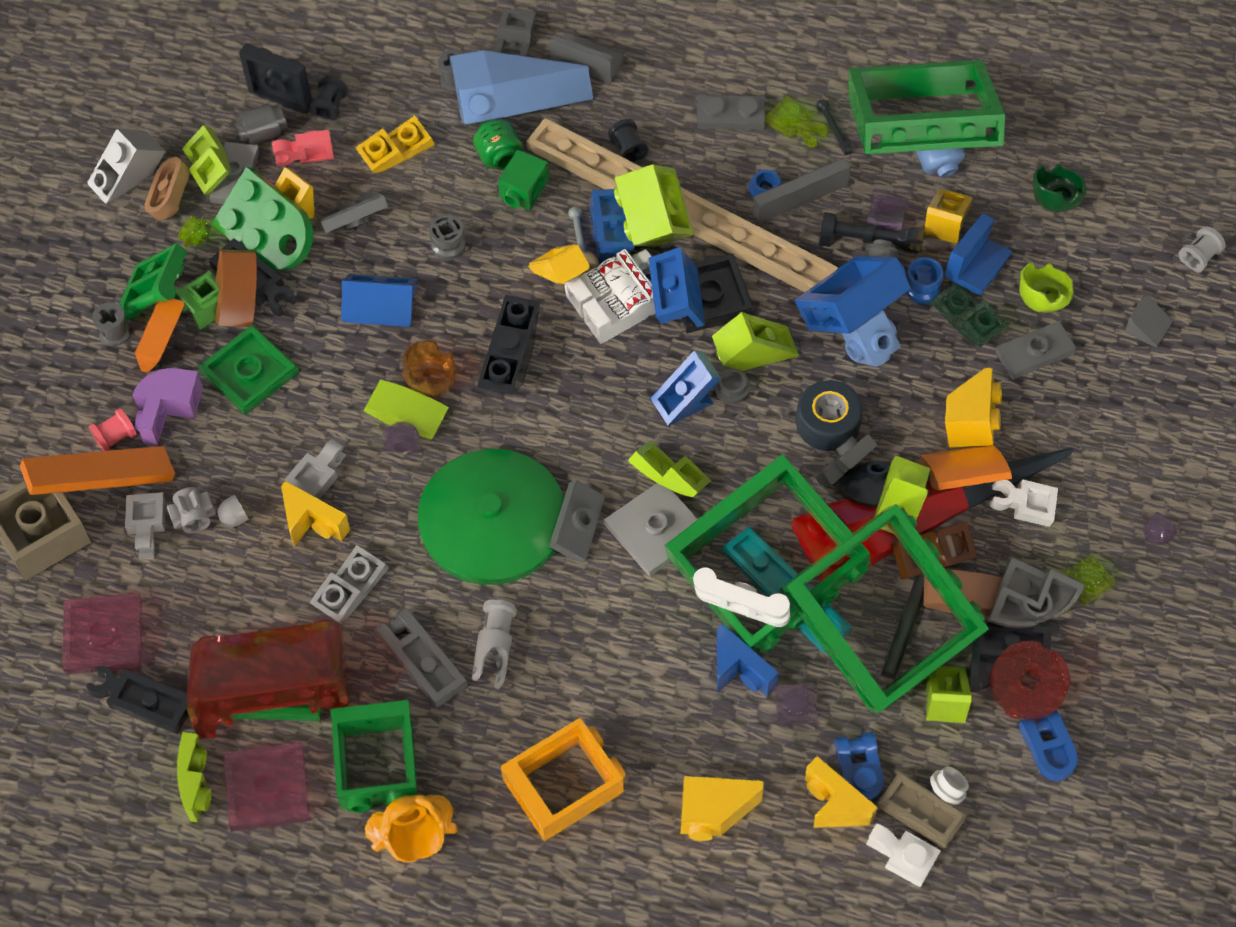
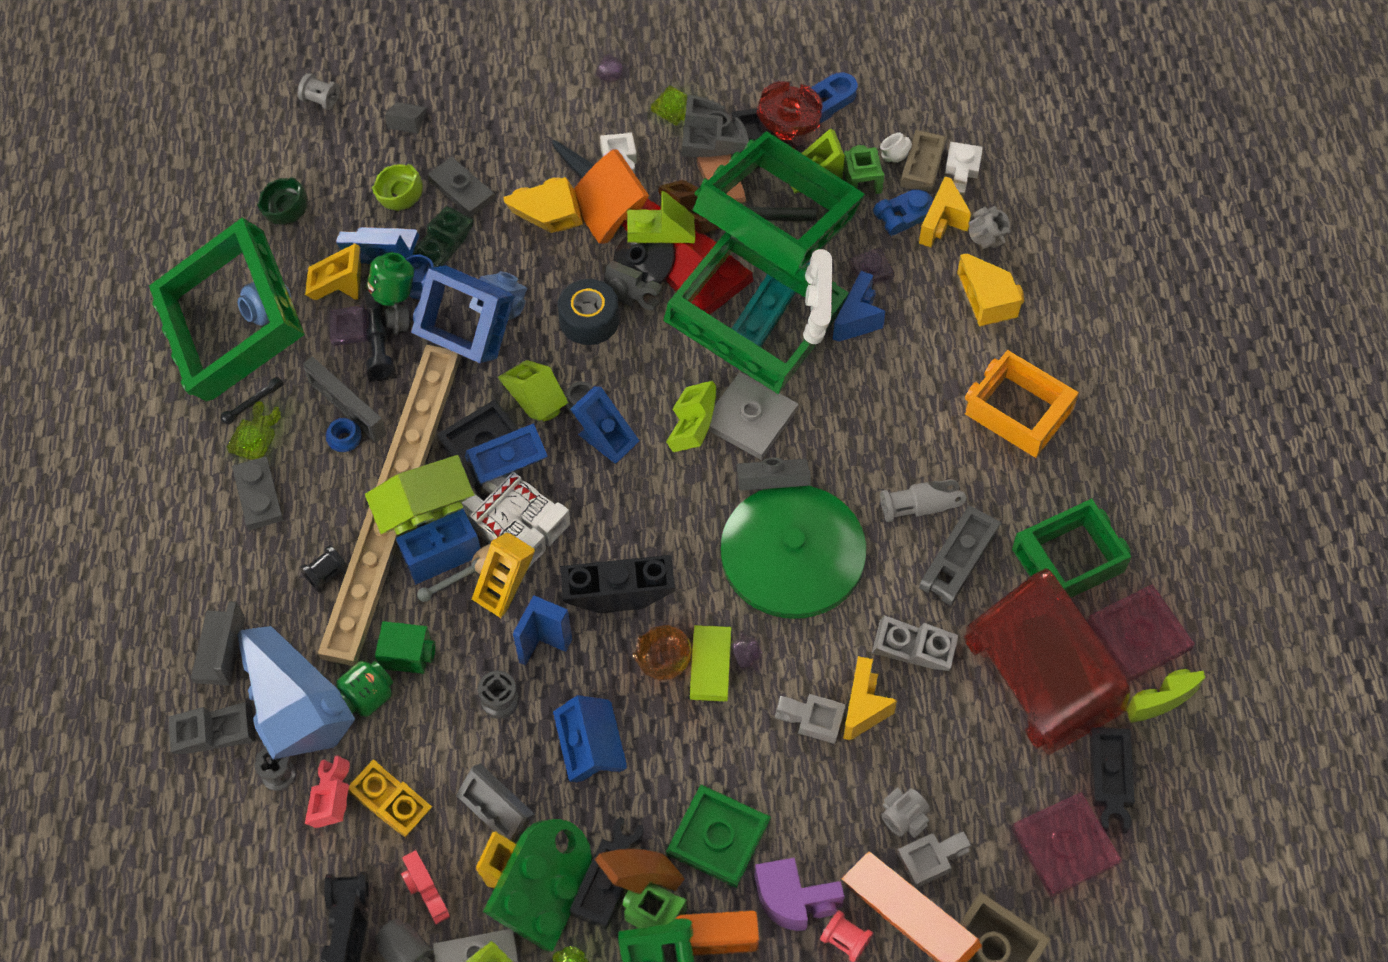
camera: 110 degrees left, 0 degrees up
(231, 512) = (887, 777): light grey hinge -> none
(411, 102) = (329, 798): none -> coral plate
(411, 827) = (1120, 501): light orange hair -> none
(487, 275) = (542, 623): none -> blue panel
(789, 841) = (989, 227): none -> light grey gear
(912, 239) = (390, 279): none -> green head
(925, 749) = (863, 165): none -> bright green window

